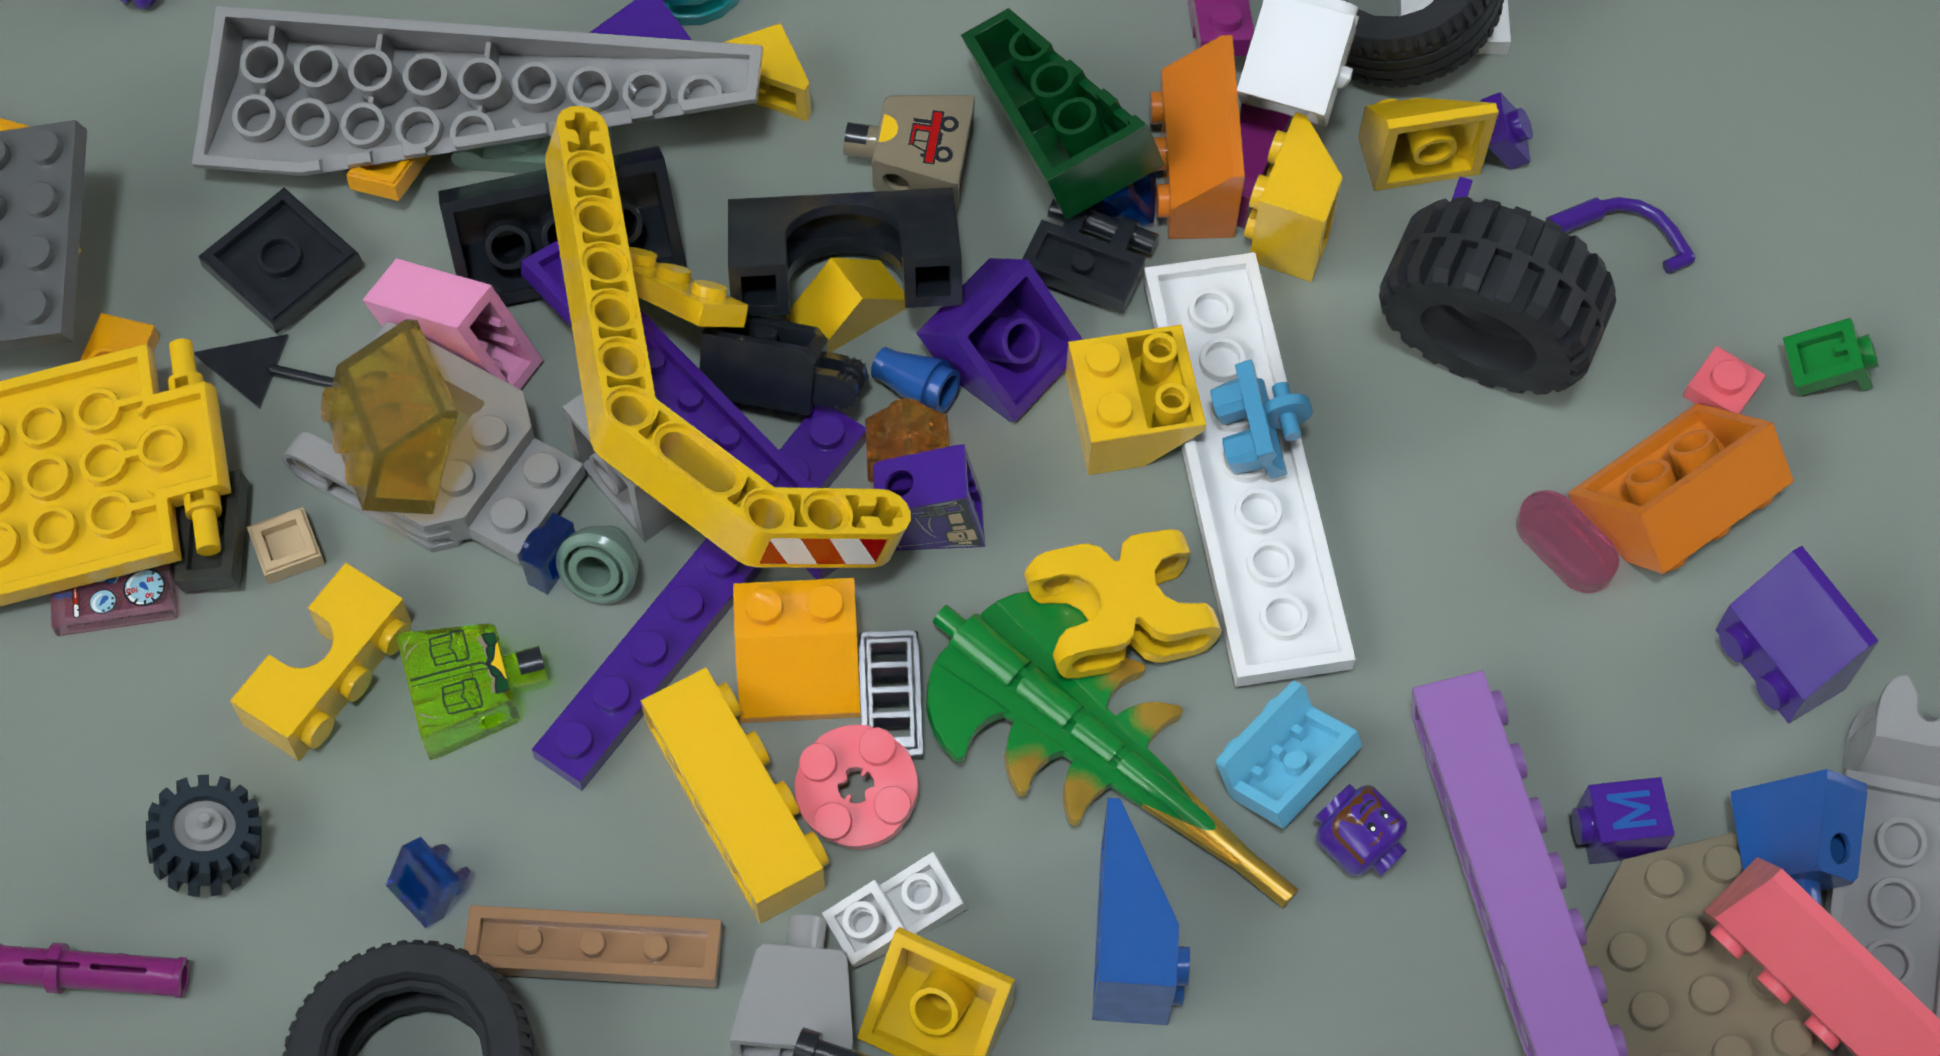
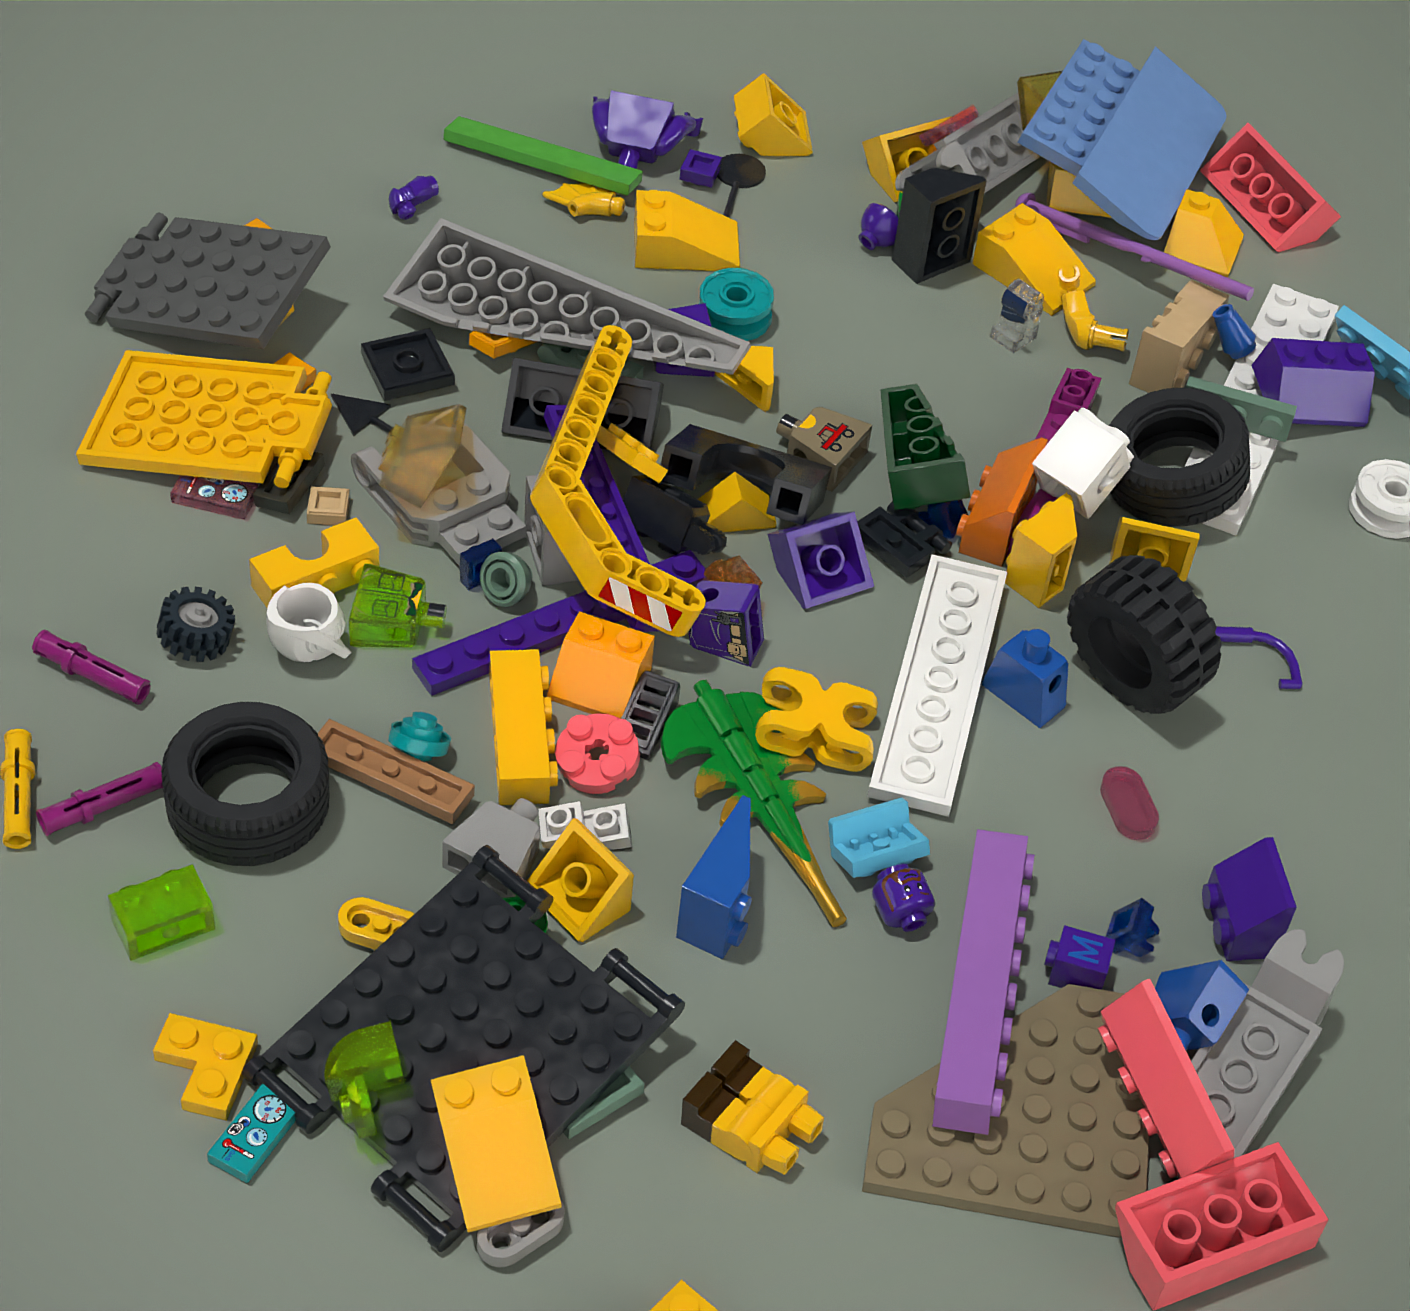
camera: 20 degrees right, 15 degrees down
(364, 770) = (306, 623): none -> white helmet
(425, 881) = (311, 697): clear blue tile -> none
(456, 316) = (497, 424): bright pink slope -> none
(609, 878) = (420, 736): none -> teal plate
(917, 377) = (760, 559): blue cone -> none
(1133, 397) = (884, 616): yellow slope -> none
(1249, 399) = (961, 652): dark azure hips -> none
(1363, 410) = (1029, 676): none -> blue torso
(1510, 133) = (1209, 568): dark purple plate -> none
(1660, 739) = (1131, 928): none -> clear blue tile
(1684, 485) = (1224, 801): orange slope -> none
(1724, 382) = (1283, 760): coral plate -> none
(1830, 357) = (1364, 767): green bracket -> none

